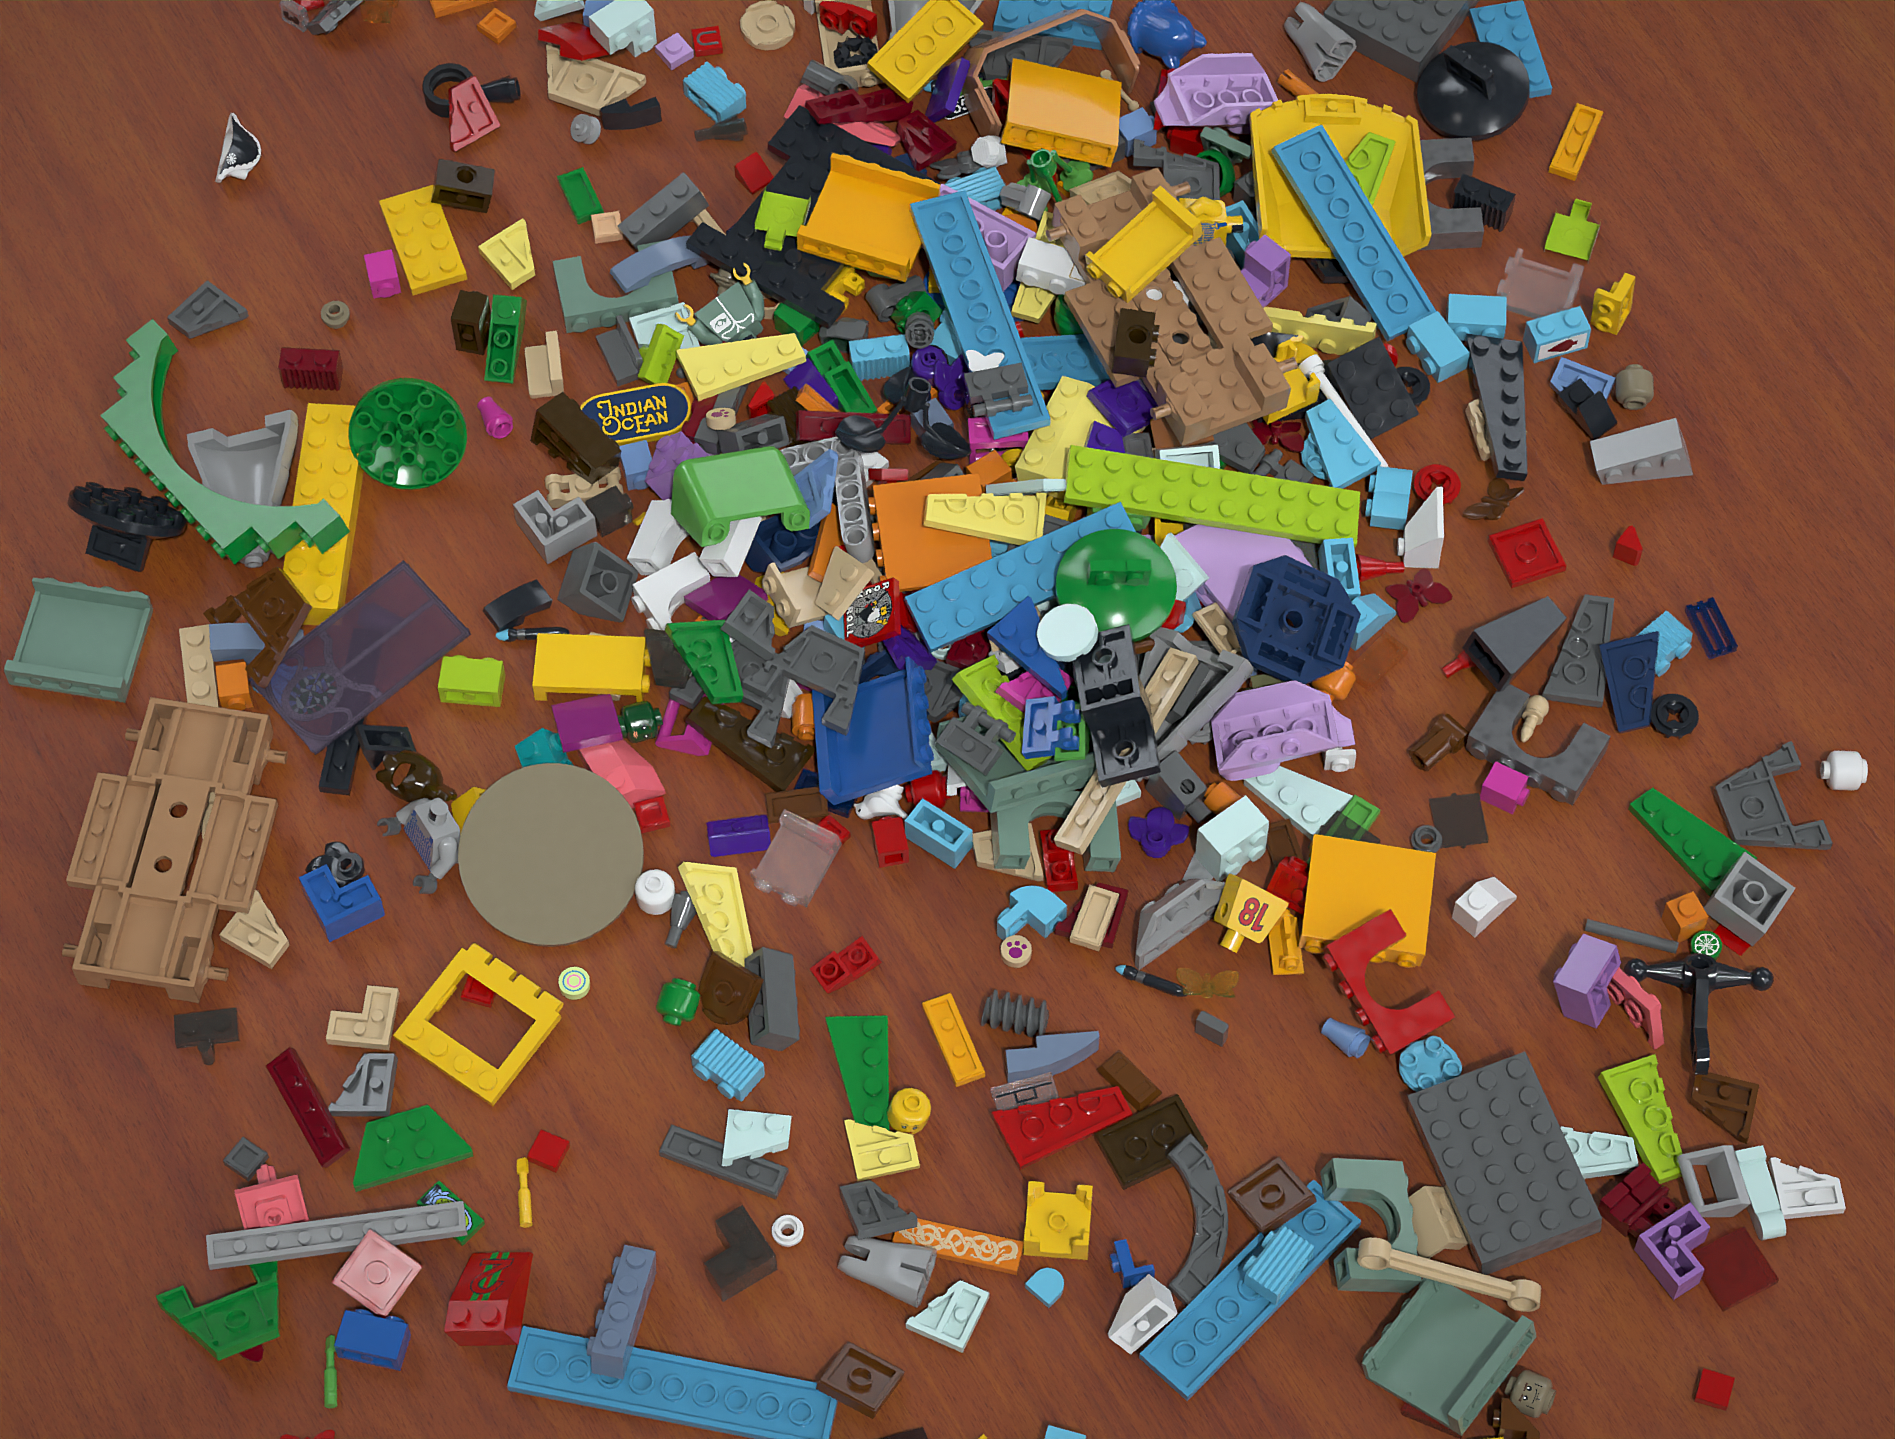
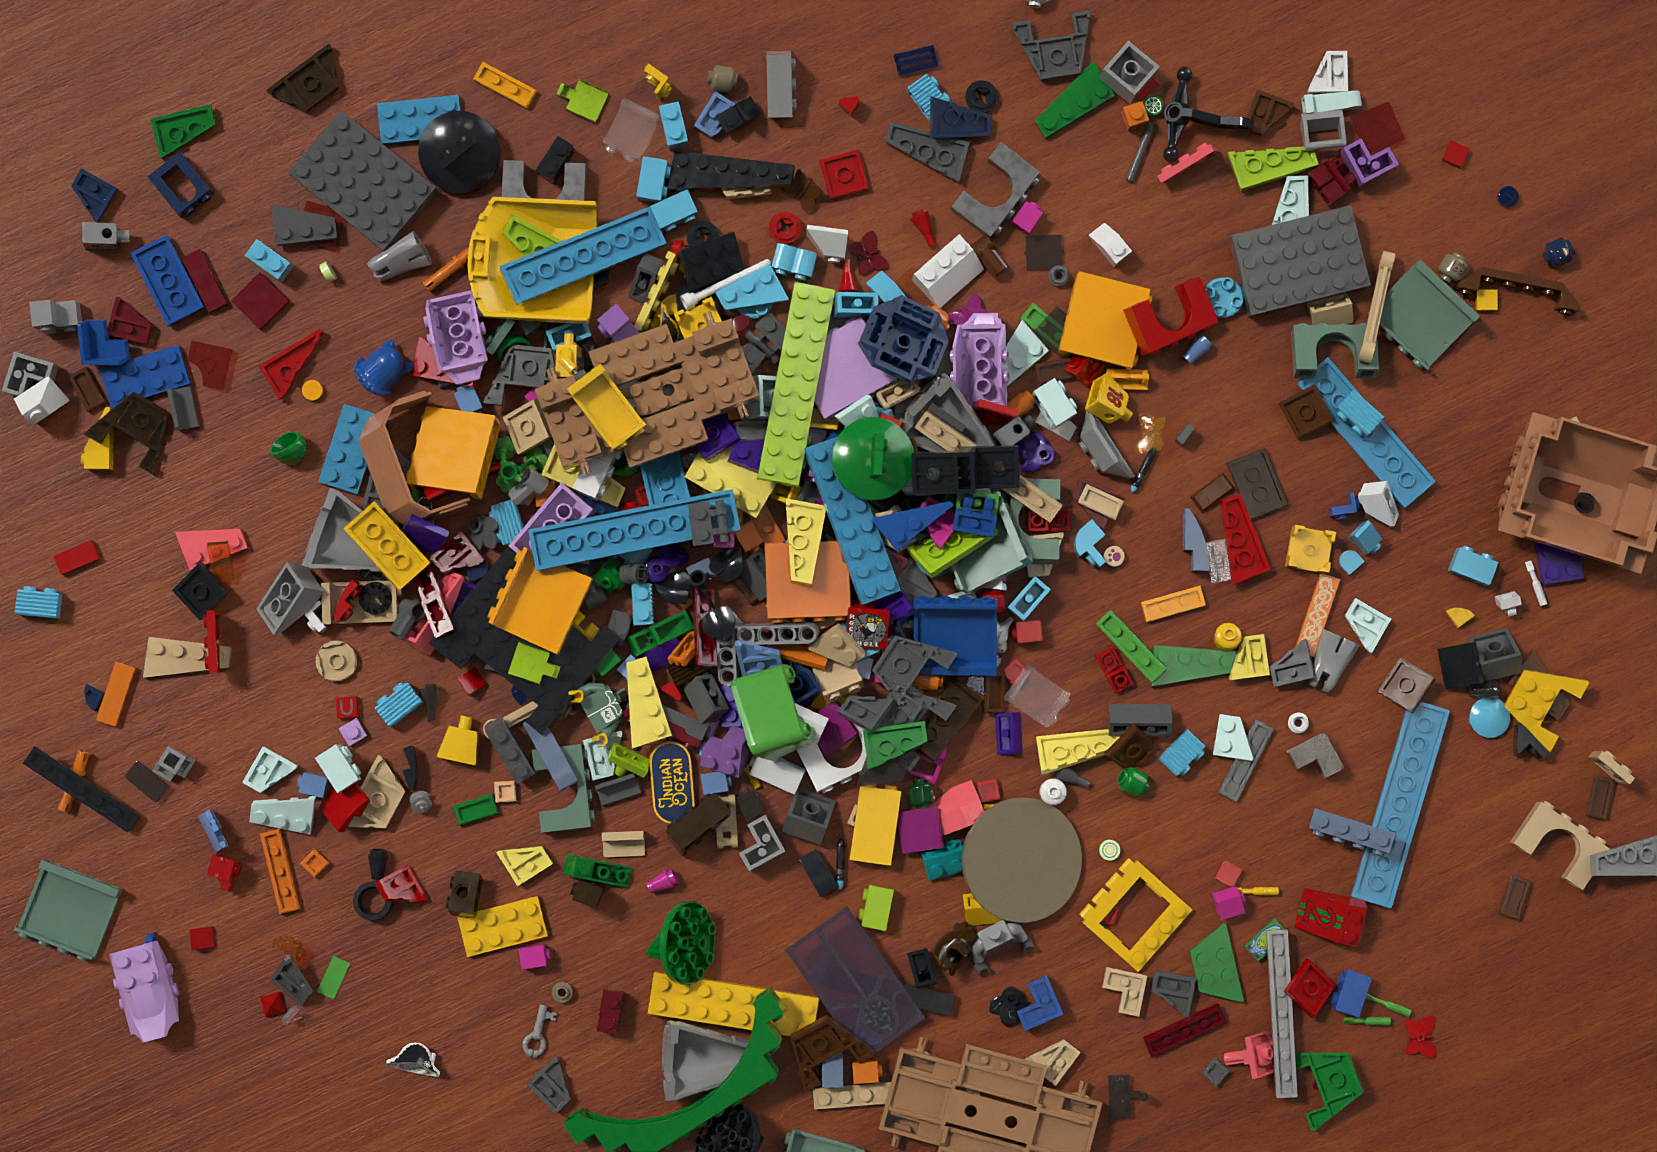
camera: 90 degrees left, 25 degrees up
(276, 290) = (536, 1034): none -> light grey piece
(345, 61) = (333, 977): none -> bright green sticker
(355, 1404) = (1391, 1006): none -> bright green piece
(503, 1148) = (1229, 902): none -> dark pink brick
(664, 162) = (460, 743): none -> yellow torso
(721, 418) = (693, 720): tan tile -> none
(882, 984) = (1131, 646): none -> bright green tile
(887, 475) = (744, 607): red tile -> none
(971, 746) = (981, 571): dark grey plate -> none
(979, 362) = (680, 533): white sticker -> none
(989, 151) = (479, 509): white piece -> none
(1015, 1013) = (1163, 560): dark grey piece -> none
(1027, 487) = (776, 512): light aqua tile -> none
(1067, 632) = (911, 496): light aqua tile -> none
(1085, 1295) = (1366, 538): none -> medium azure slope
(1132, 105) = (409, 416): tan hinge -> none
(1135, 328) = (695, 431): dark brown brick -> none
(1208, 751) = (994, 413): none -> red tile
(1210, 1219) = (1318, 453): dark grey tile -> none
(1360, 732) = (973, 306): none -> magenta piece
(1407, 688) = (948, 271): none -> white slope
(1513, 641) = (924, 193): slope -> none
(1533, 715) = (967, 186): tan bar -> none
(1585, 978) = (1180, 186): medium lavender brick -> none

